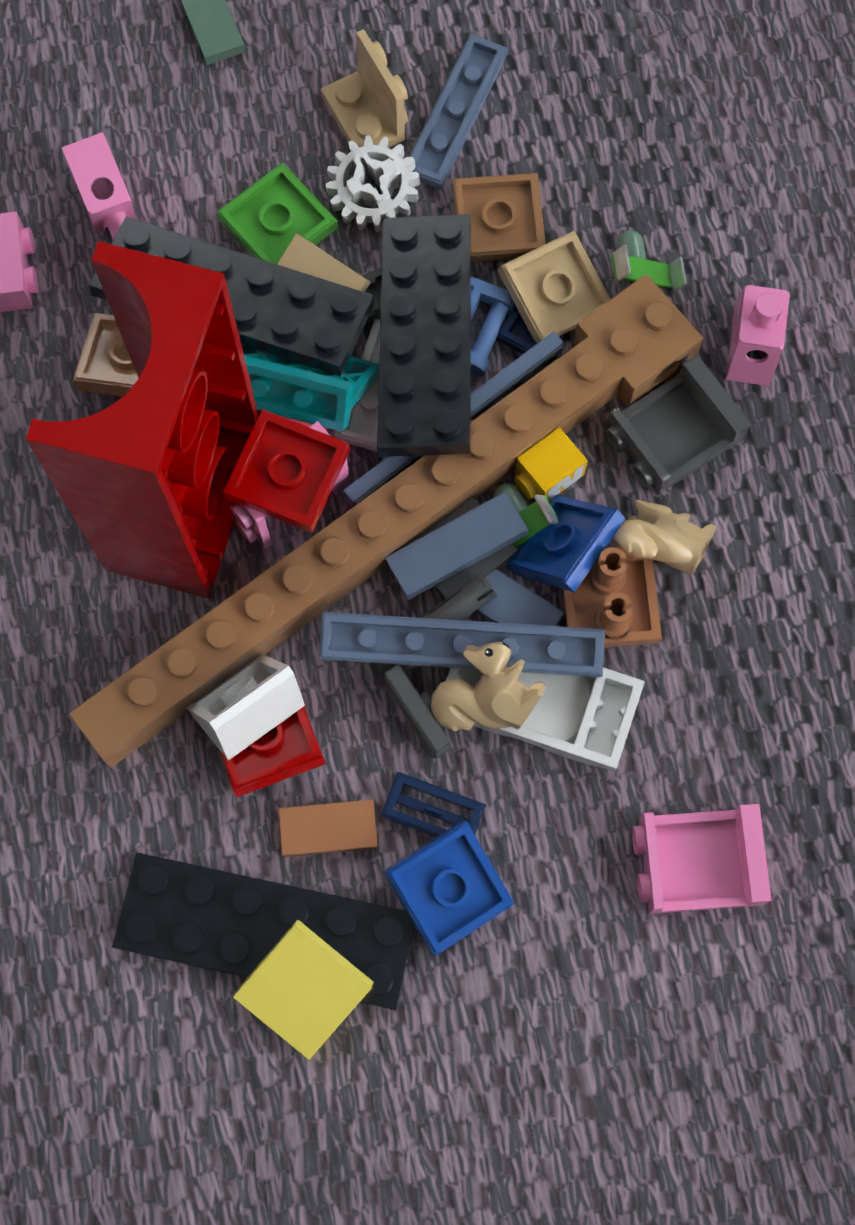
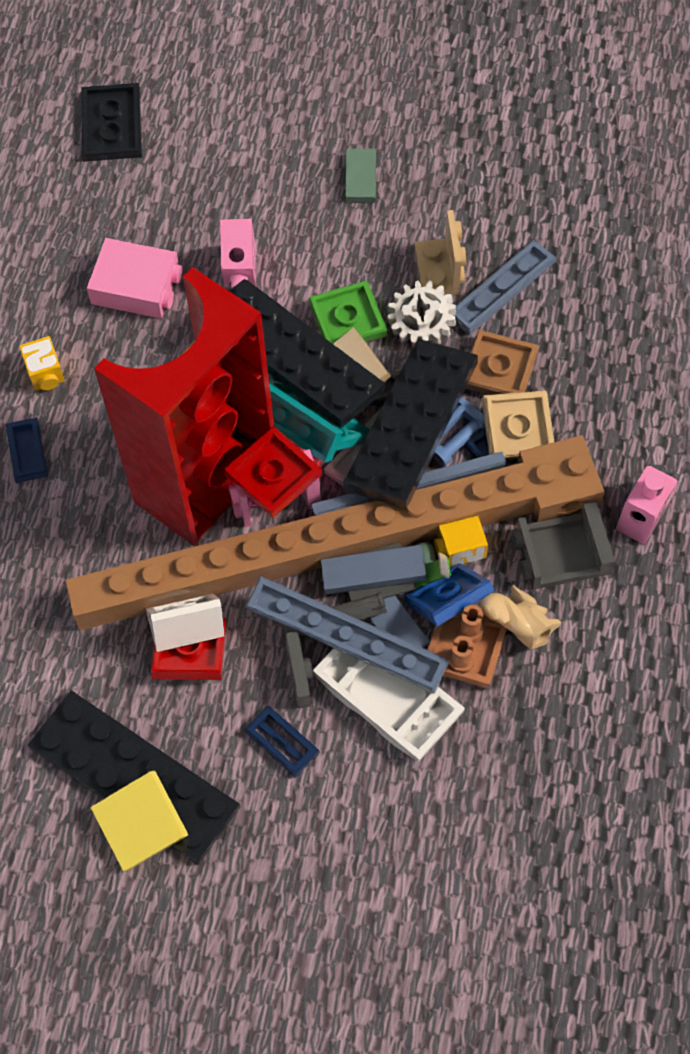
camera: 25 degrees right, 10 degrees down
(328, 828) = (205, 725): nougat tile -> none
(448, 888) = (268, 794): blue tile -> none
(495, 700) = (352, 678): tan animal -> none
(631, 264) = (583, 425): piece -> none
(702, 860) = (452, 846): bright pink panel -> none

